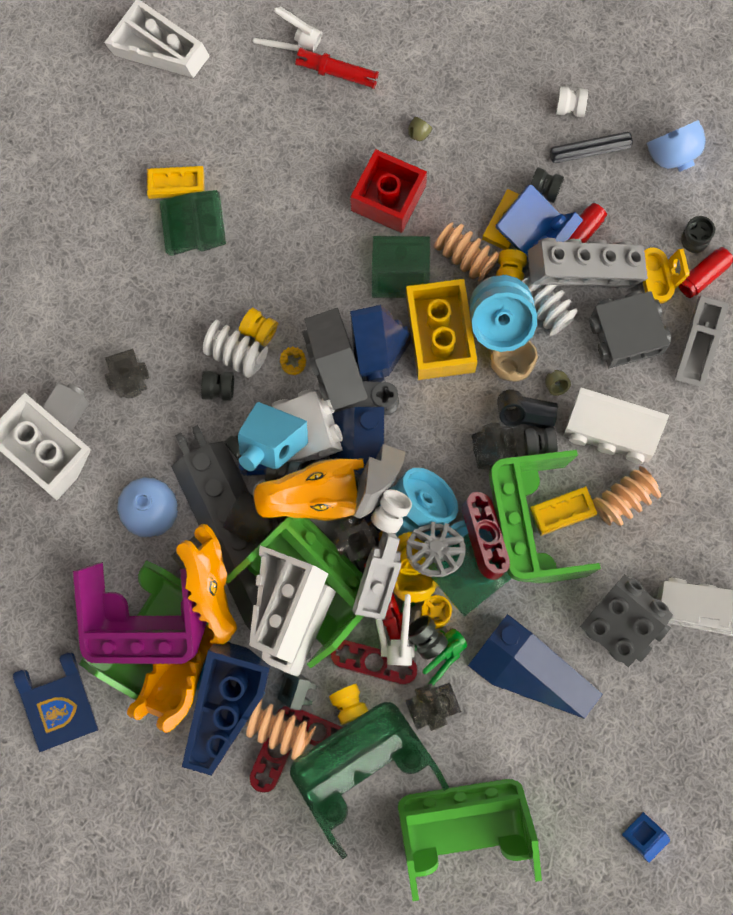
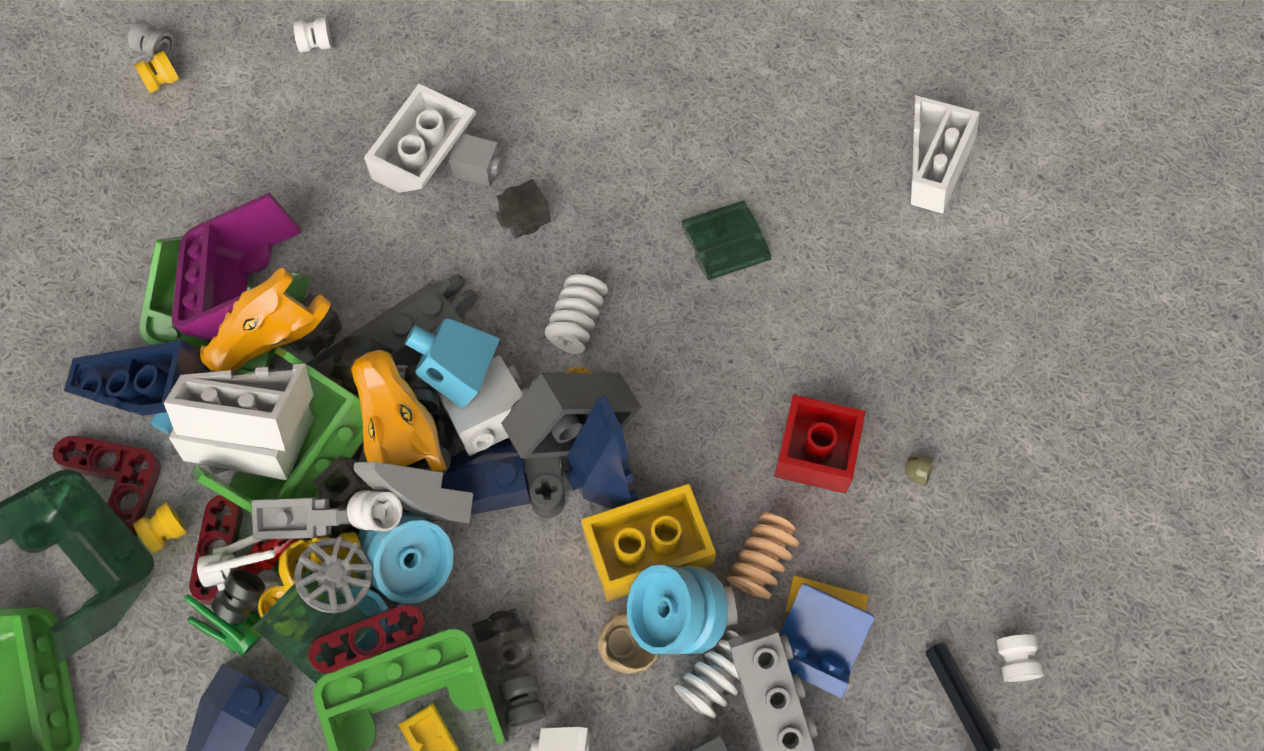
camera: 75 degrees right, 10 degrees down
(59, 708) = (135, 228): dark blue flag -> none
(147, 507) = (374, 266): light blue cylinder -> none
(171, 689) = (144, 322): light orange animal -> none
(174, 181) = (771, 211): yellow plate -> none
(217, 385) = (528, 302): pearl dark grey wheel -> none
(258, 326) = (610, 334): yellow wheel -> none
(279, 730) = (114, 448): light nougat piece -> none
(294, 691) = (167, 464): pearl dark grey tile -> none
(306, 35) = (1004, 313): white plant -> none
(336, 68) = (973, 342): red pin -> none
(398, 264) = (727, 481): clear green slope -> none
(426, 706) = (159, 624): clear smoke brick -> none
(512, 263) = (764, 613): yellow wheel -> none
(527, 410) = (561, 660): black piece -> none
(552, 185) = (886, 644): pearl dark grey wheel -> none
(559, 388) = (611, 710): olive hinge -> none
(592, 218) = (844, 711): red piece -> none

